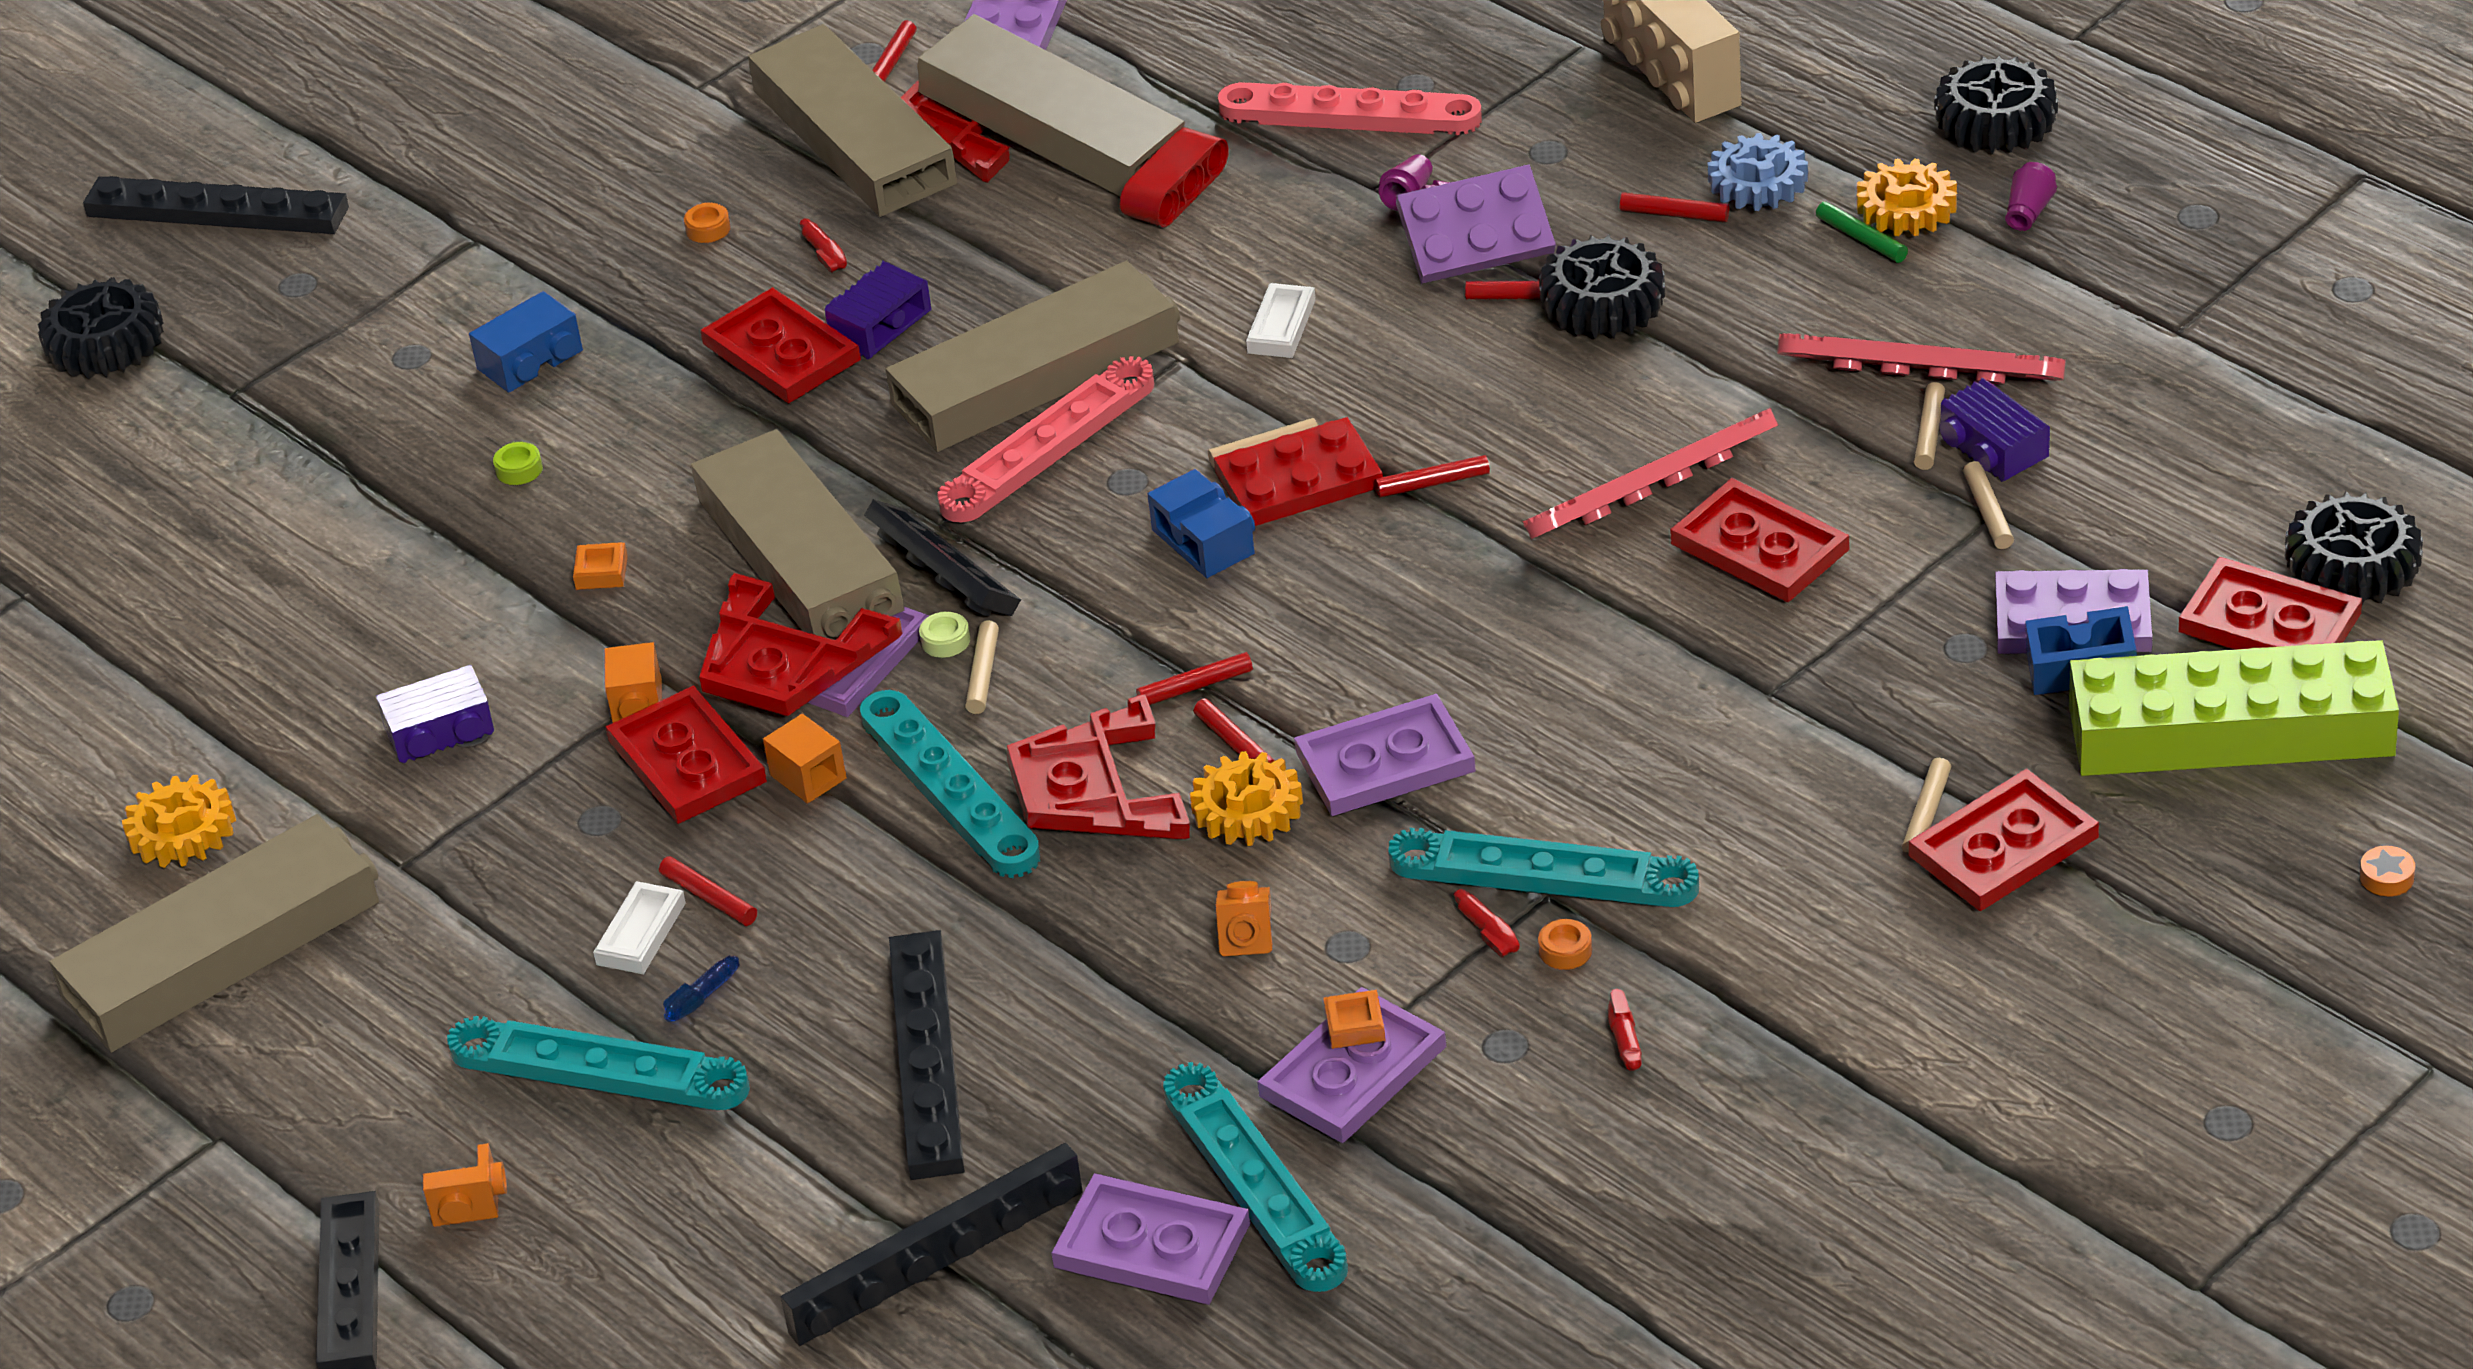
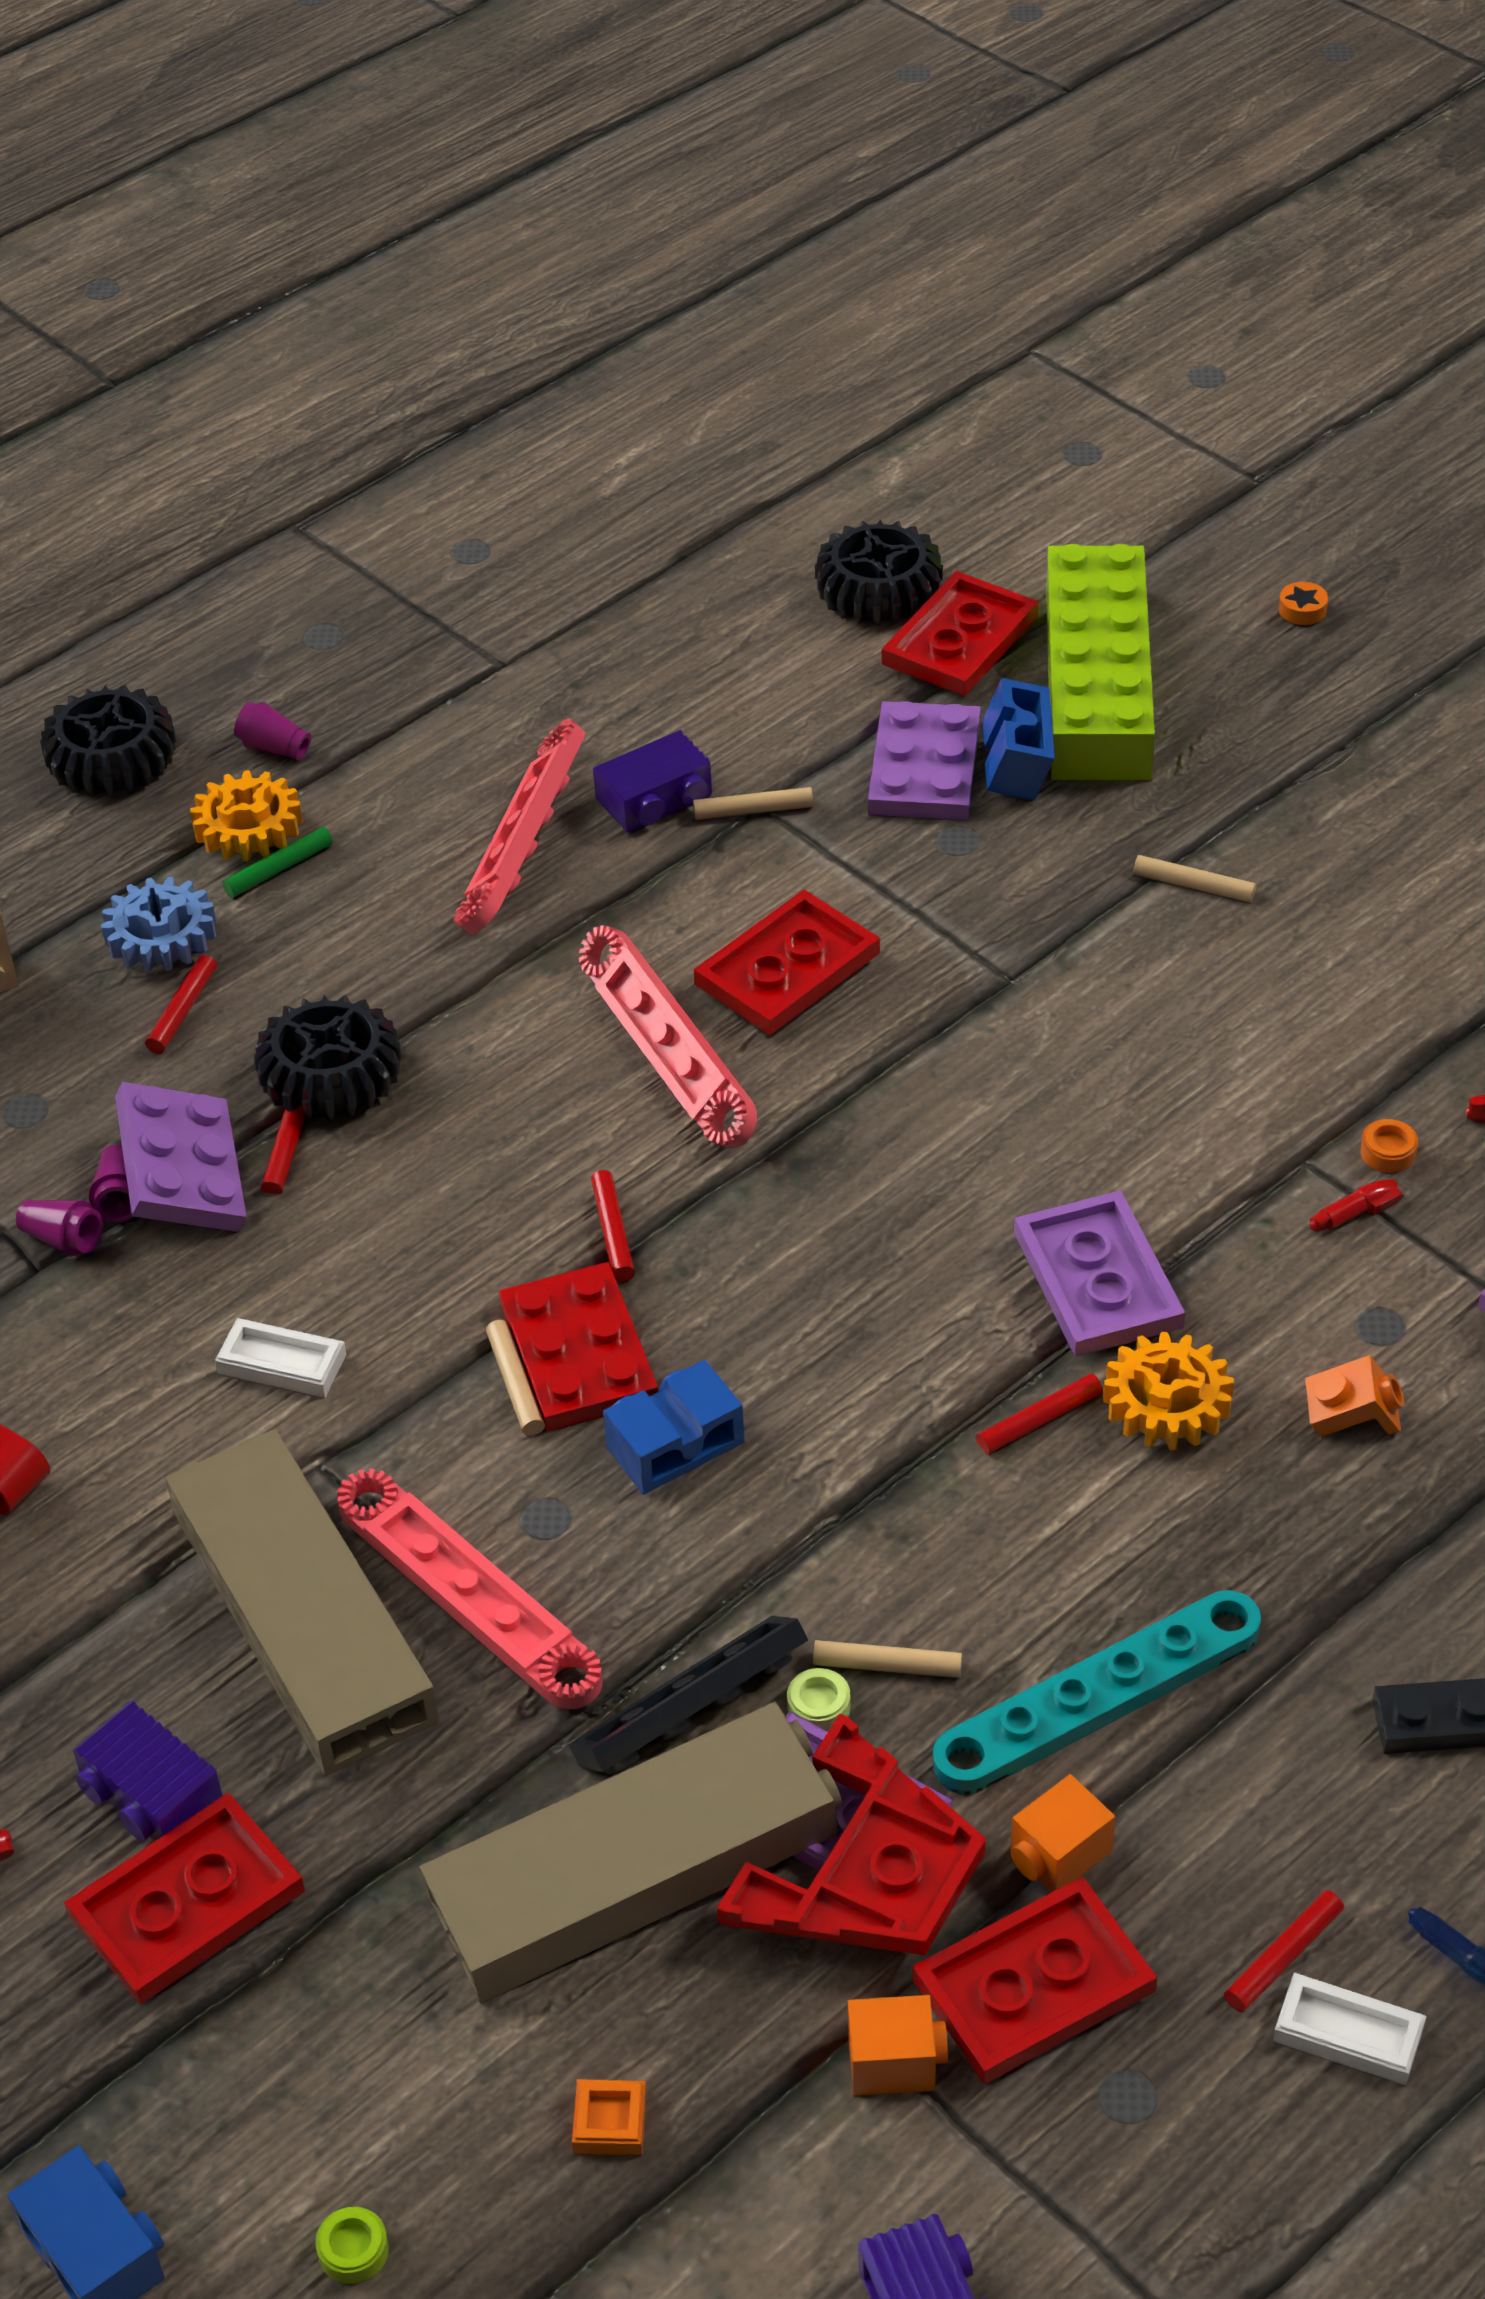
camera: 90 degrees left, 5 degrees up
(1073, 783) = (1114, 1556): red wing -> none
(1196, 678) = (939, 1448): red piece -> none
(1544, 867) = (1284, 1154): teal plate -> none
(1929, 426) = (617, 835): tan piece -> none
(2003, 839) = (1260, 823): plate -> none

